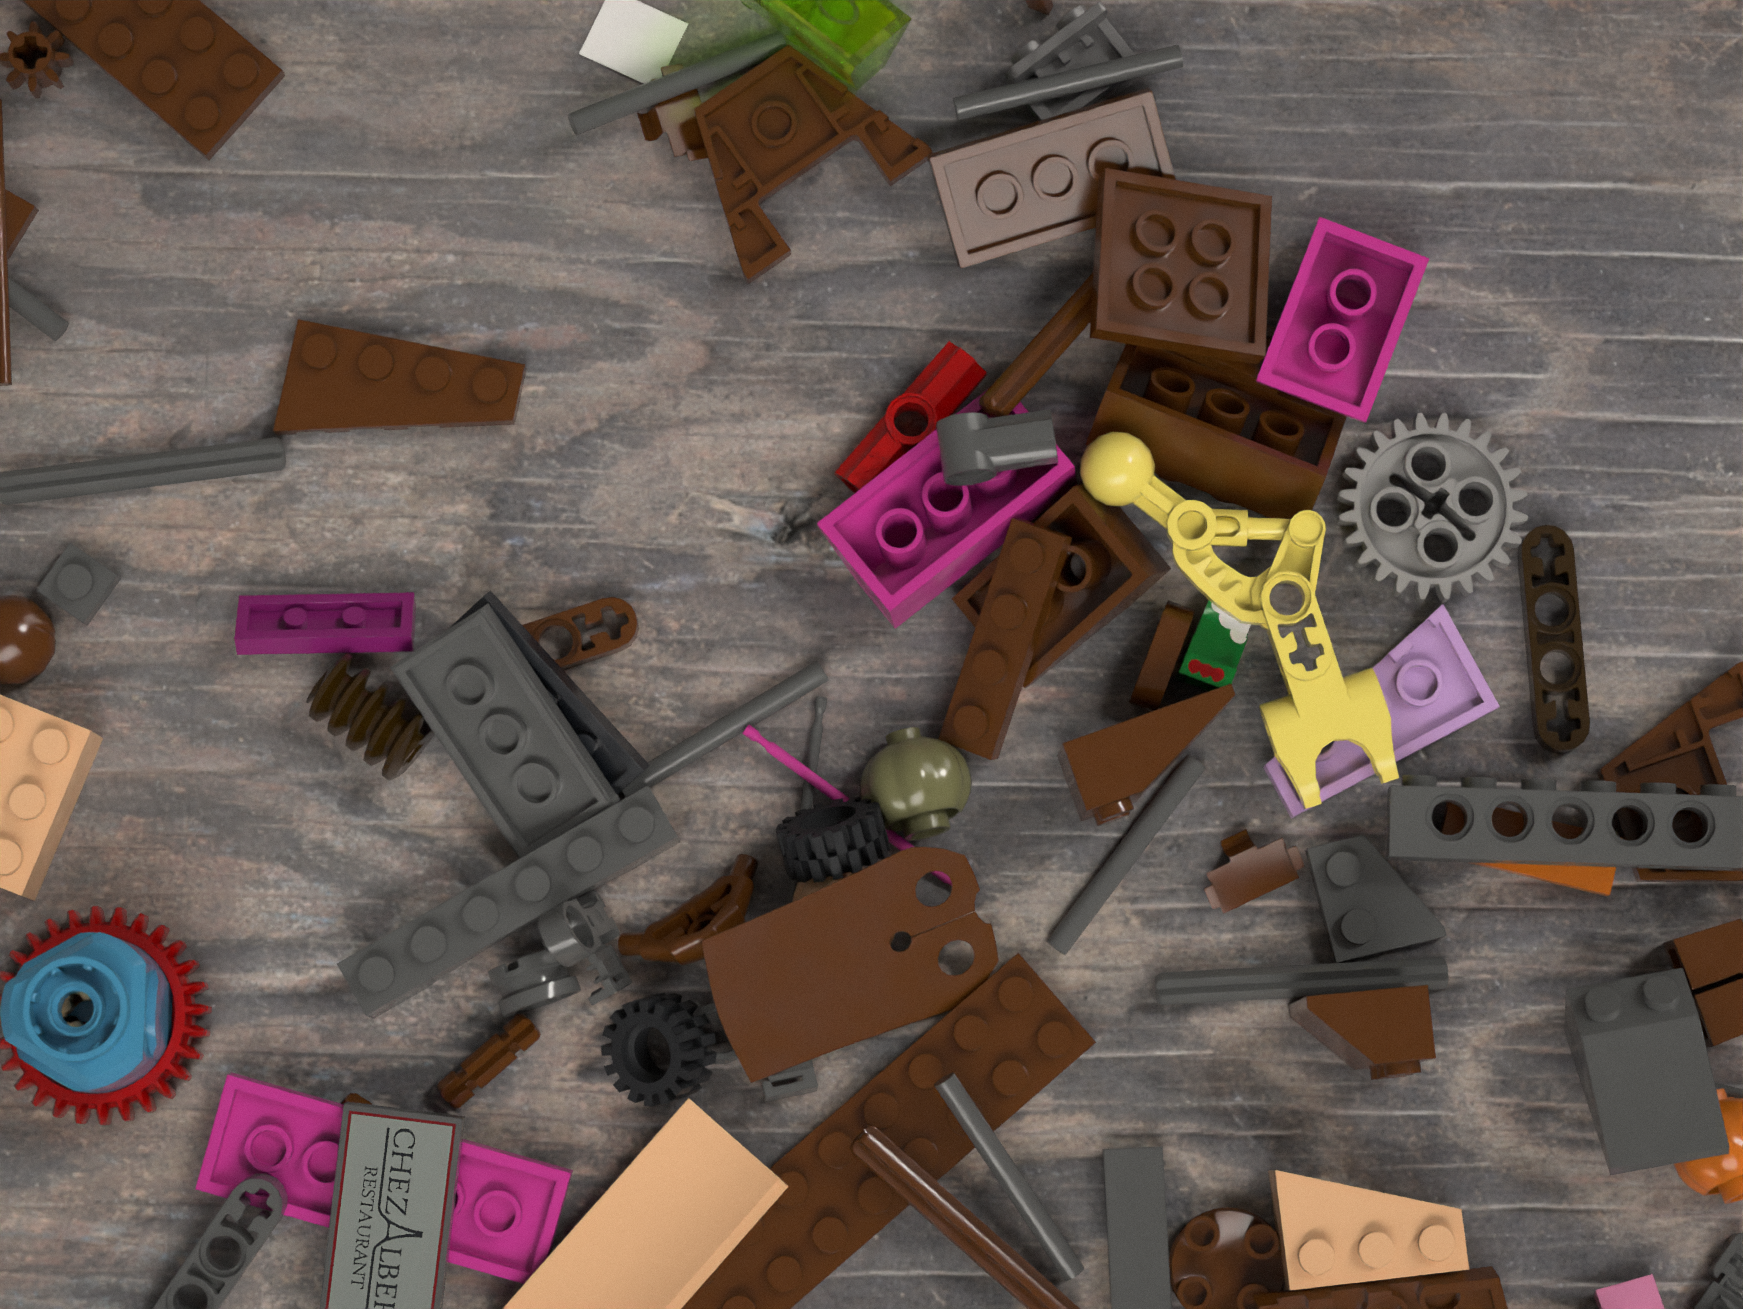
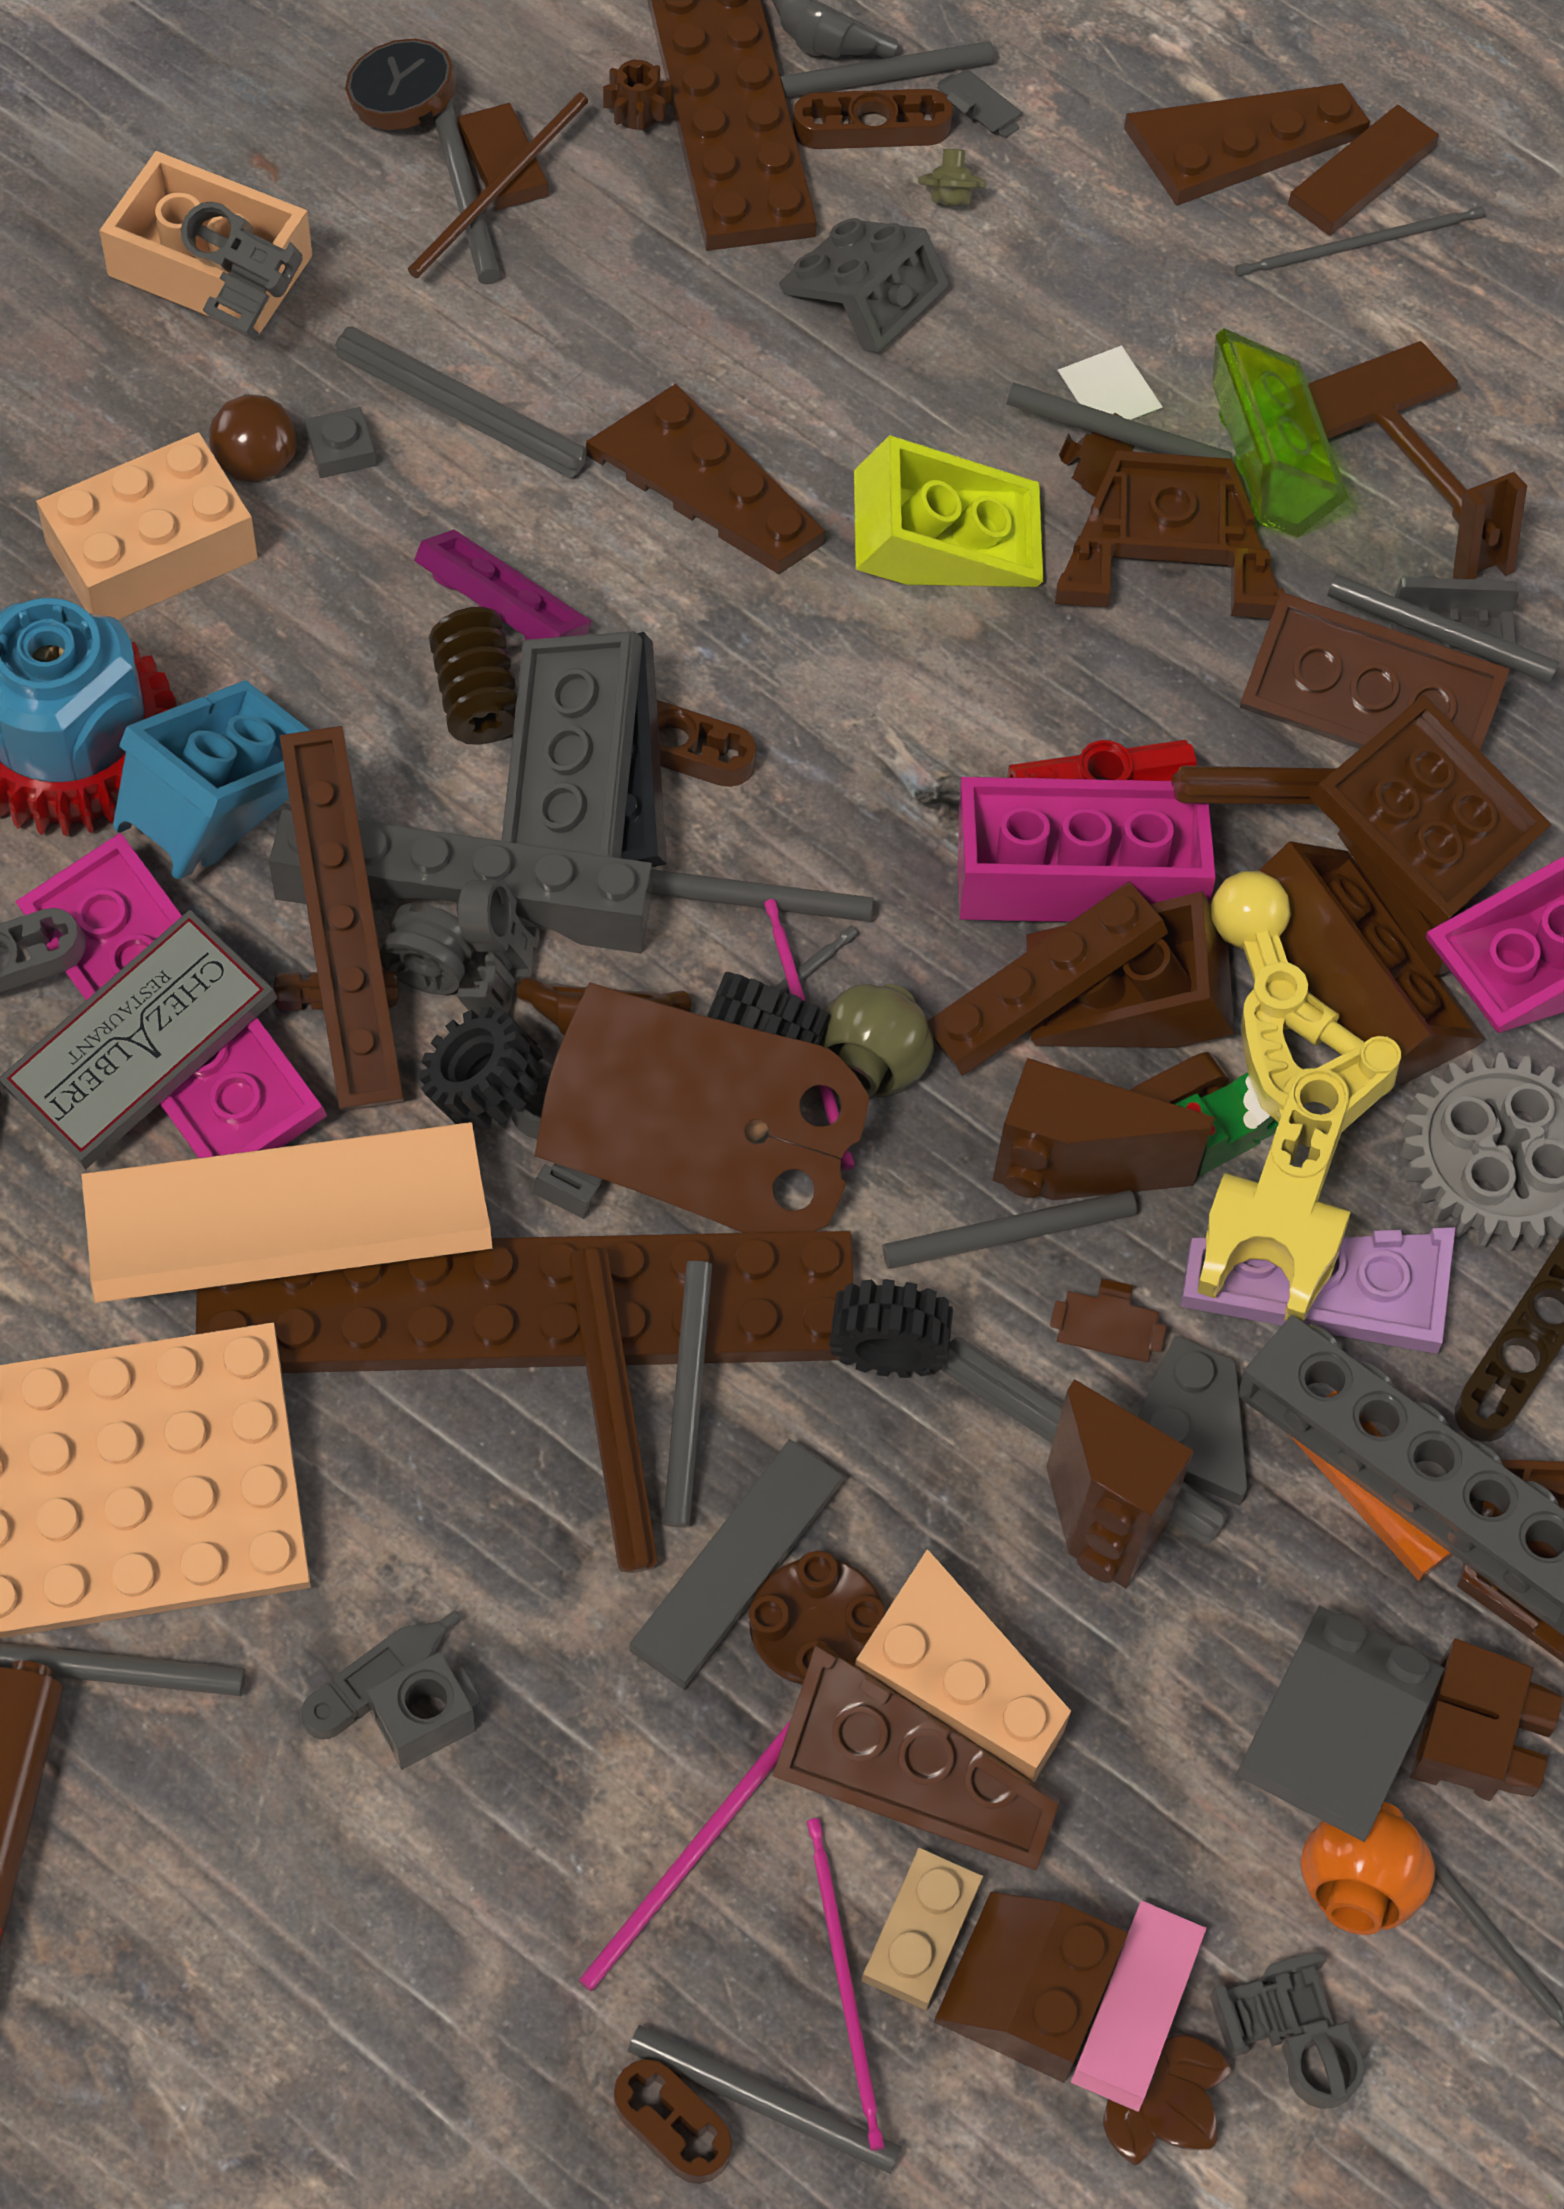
camera: 35 degrees right, 20 degrees down
(255, 965) = (204, 773): none -> dark azure piece
(365, 92) = (878, 274): none -> dark grey bracket
(461, 1020) = (341, 918): none -> reddish brown plate
(613, 280) = (945, 520): none -> neon yellow slope
(981, 446) = (1146, 801): dark grey piece -> none
(1115, 1016) = (891, 1328): none -> black tyre

